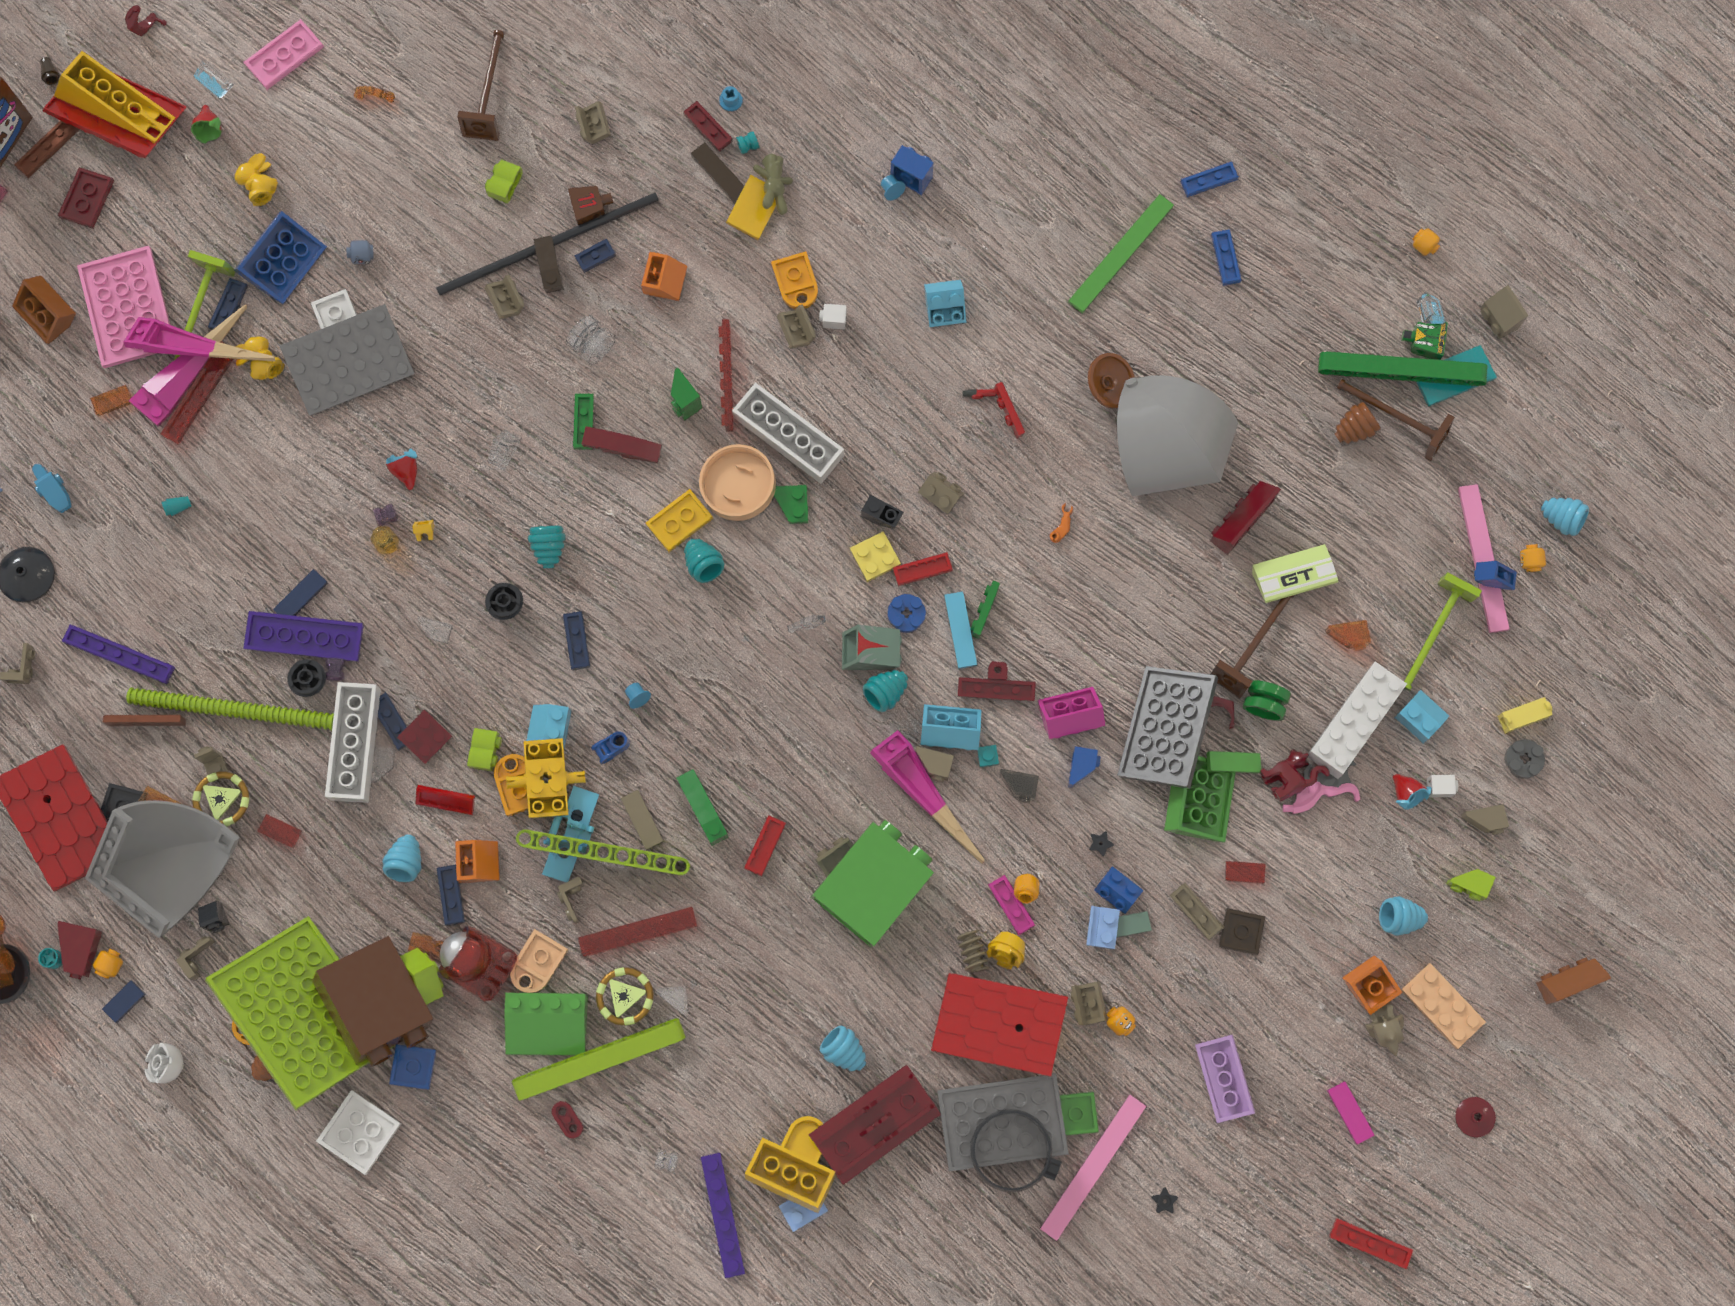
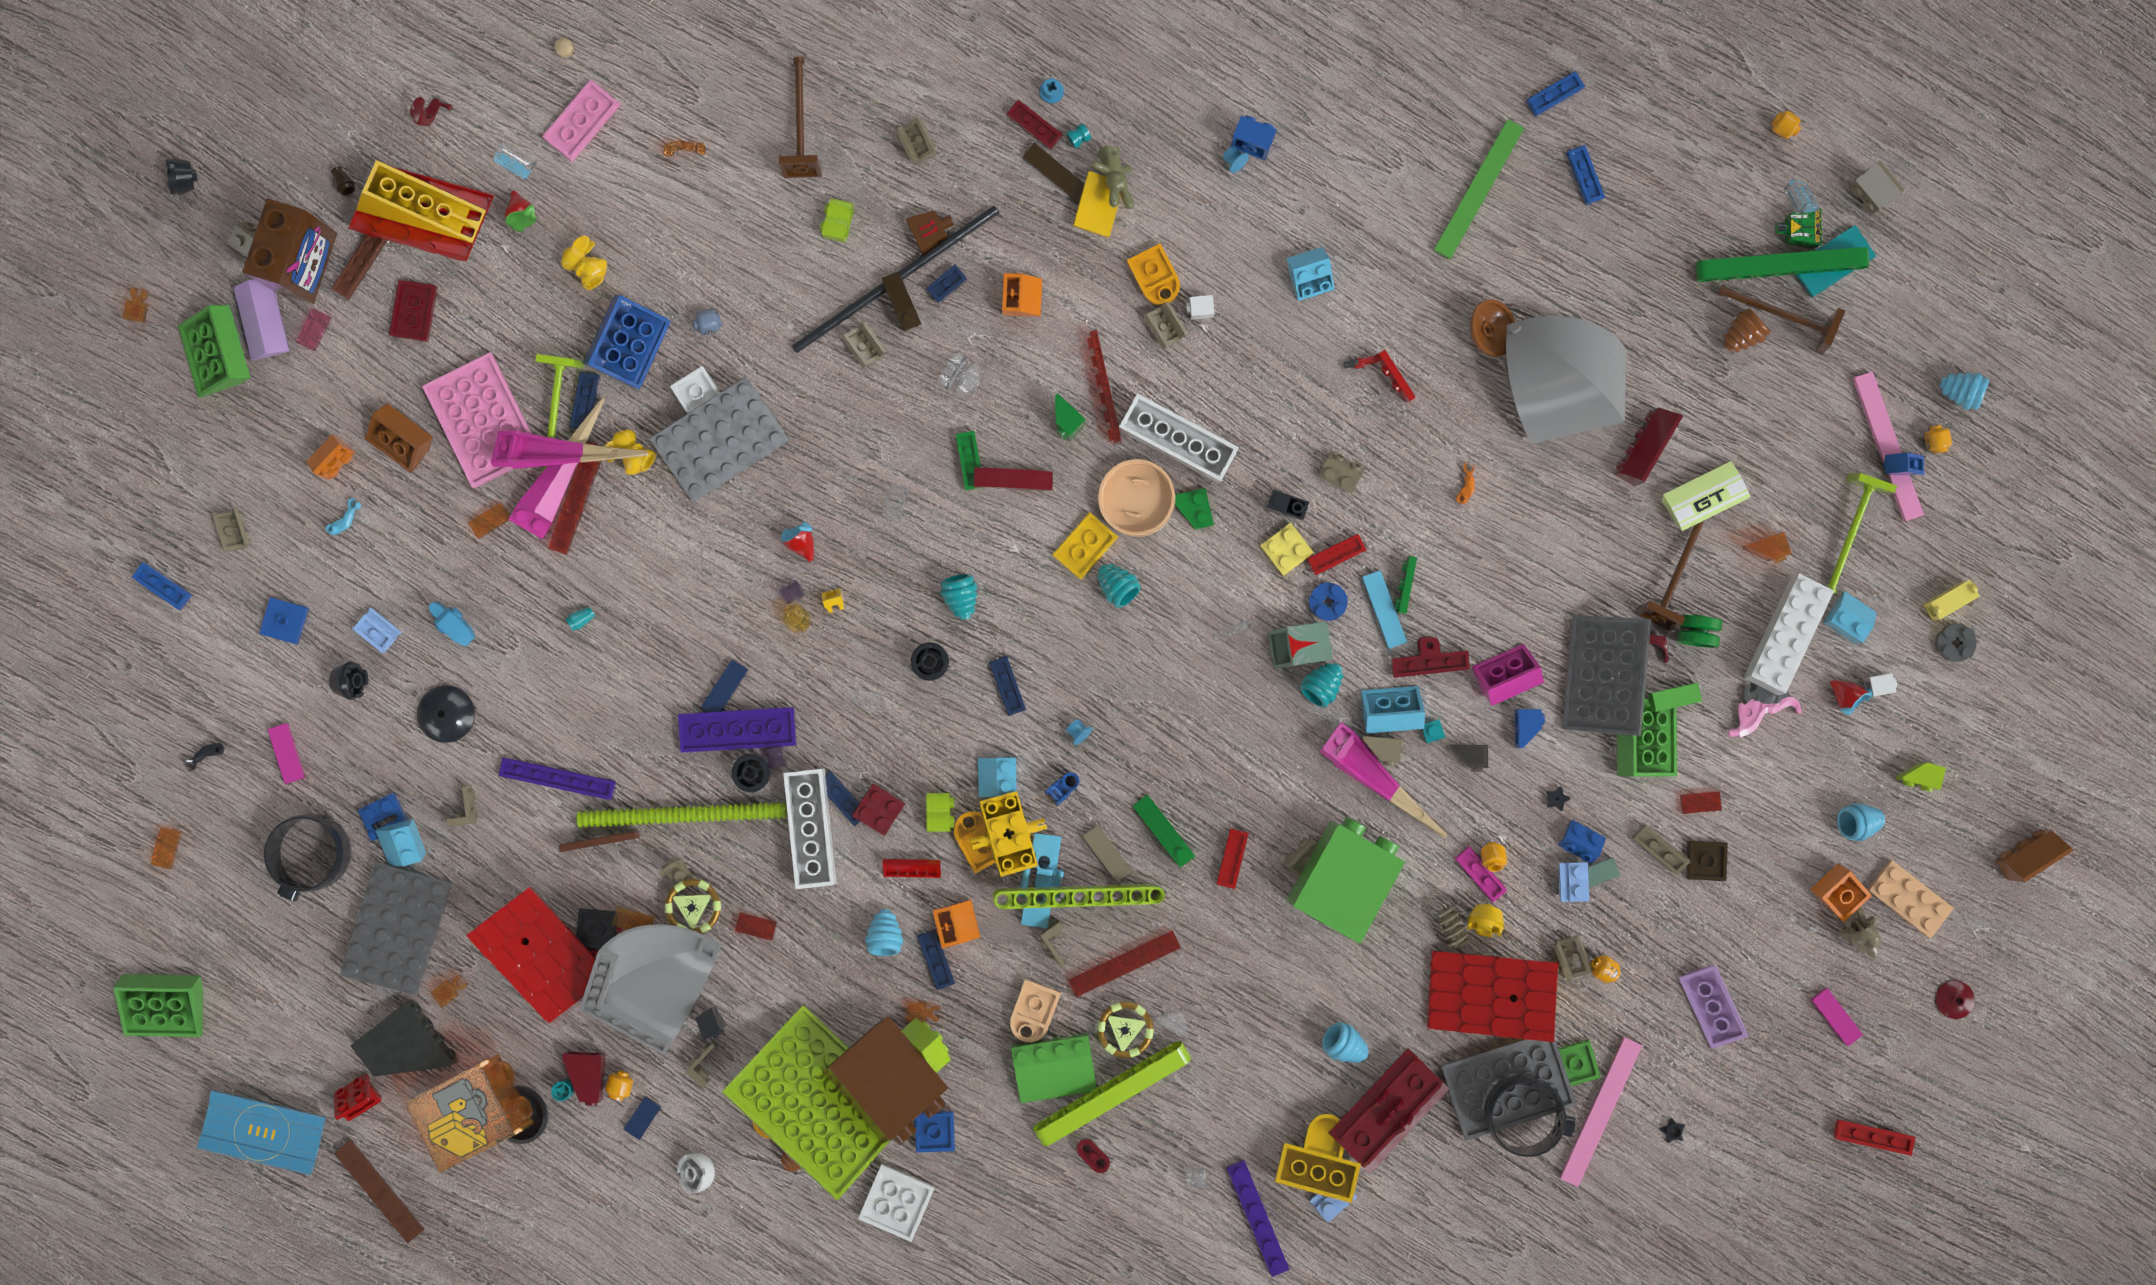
camera: 10 degrees left, 10 degrees up
(475, 962) = (976, 1023): clear red piece -> none
(1291, 779) = (1731, 702): dark red animal -> none
(1488, 819) = (1930, 710): dark tan slope -> none

